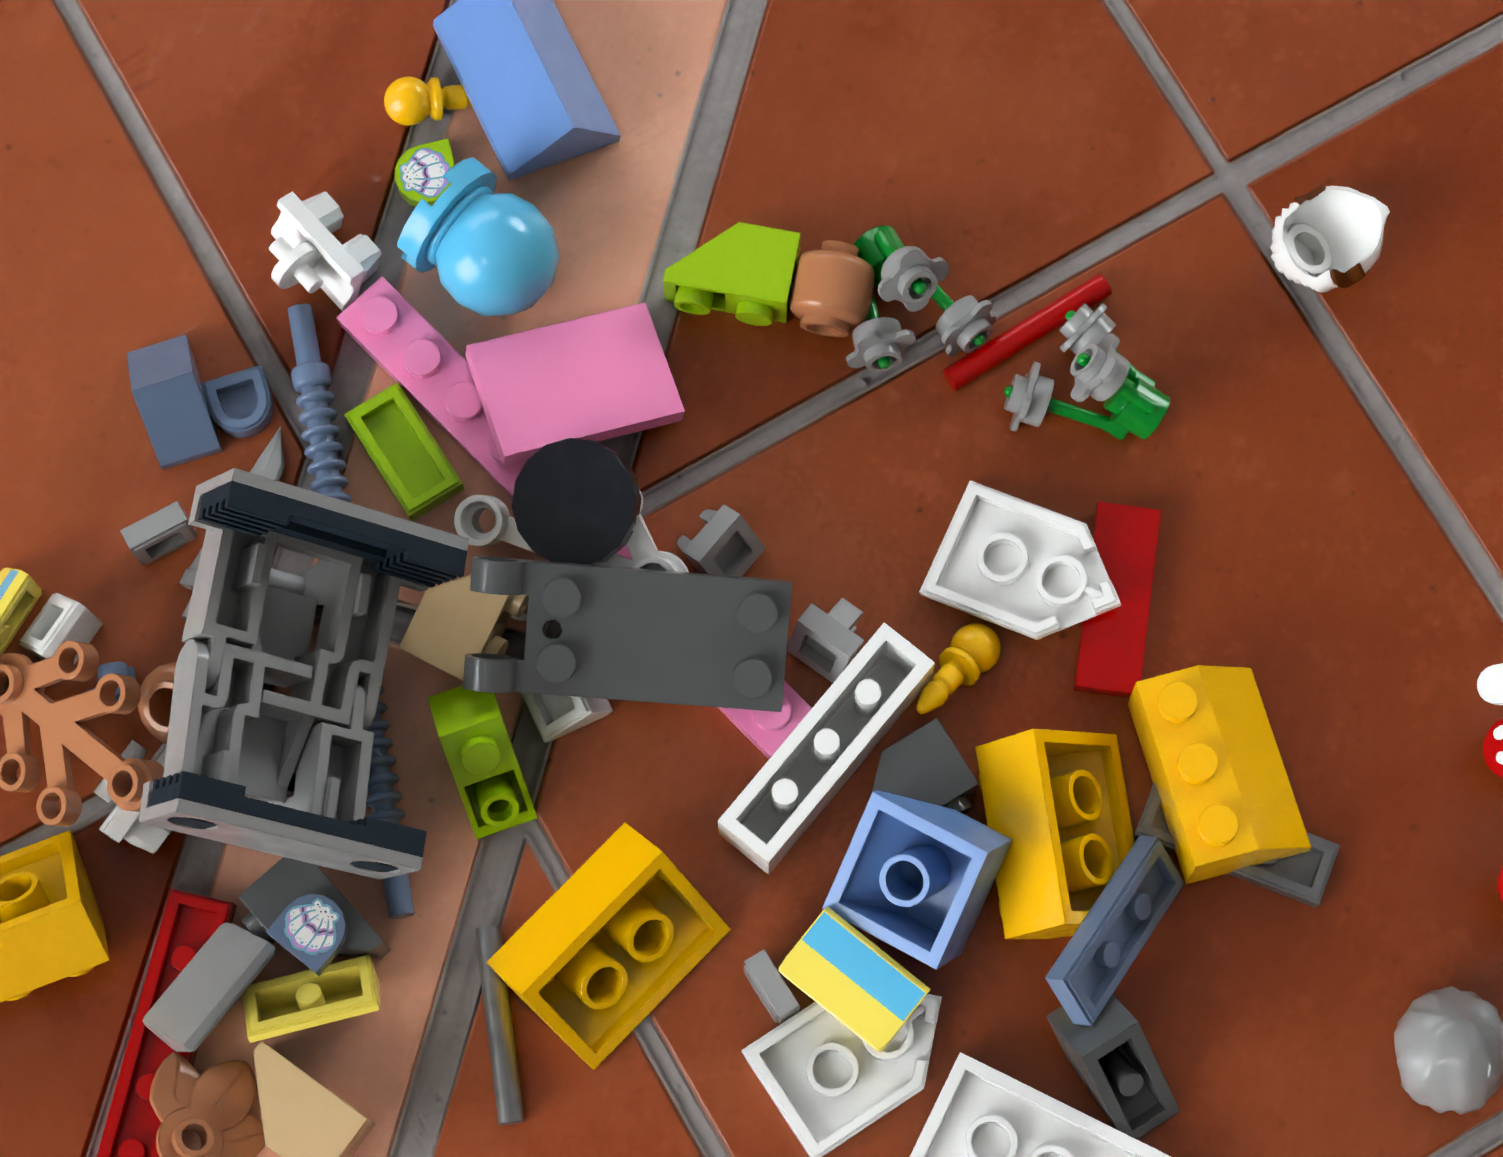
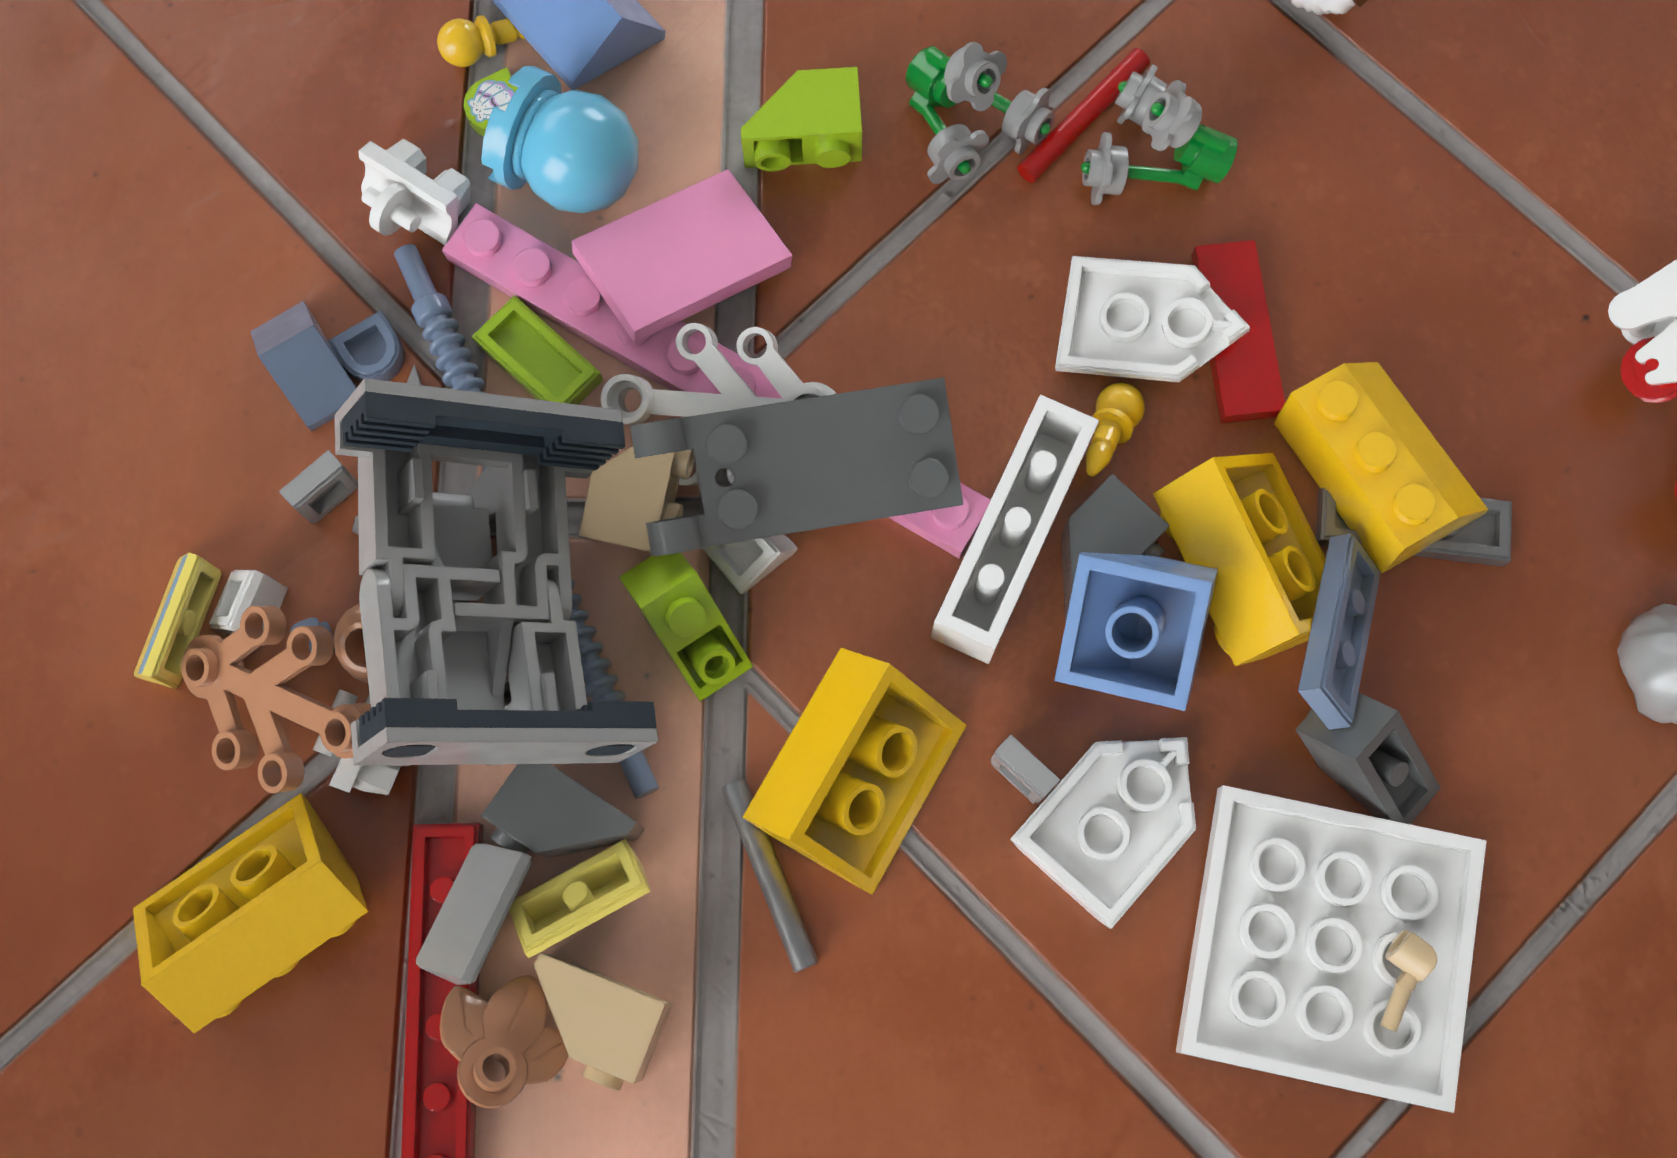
camera: 15 degrees left, 0 degrees up
(311, 930) = (562, 830): tile -> none
(576, 502) = (714, 354): black tile -> none
(723, 545) = (860, 364): light grey tile -> none
(827, 640) = (985, 431): light grey tile -> none
(831, 289) = (898, 114): nougat head -> none
(853, 979) = (1105, 741): slope -> none

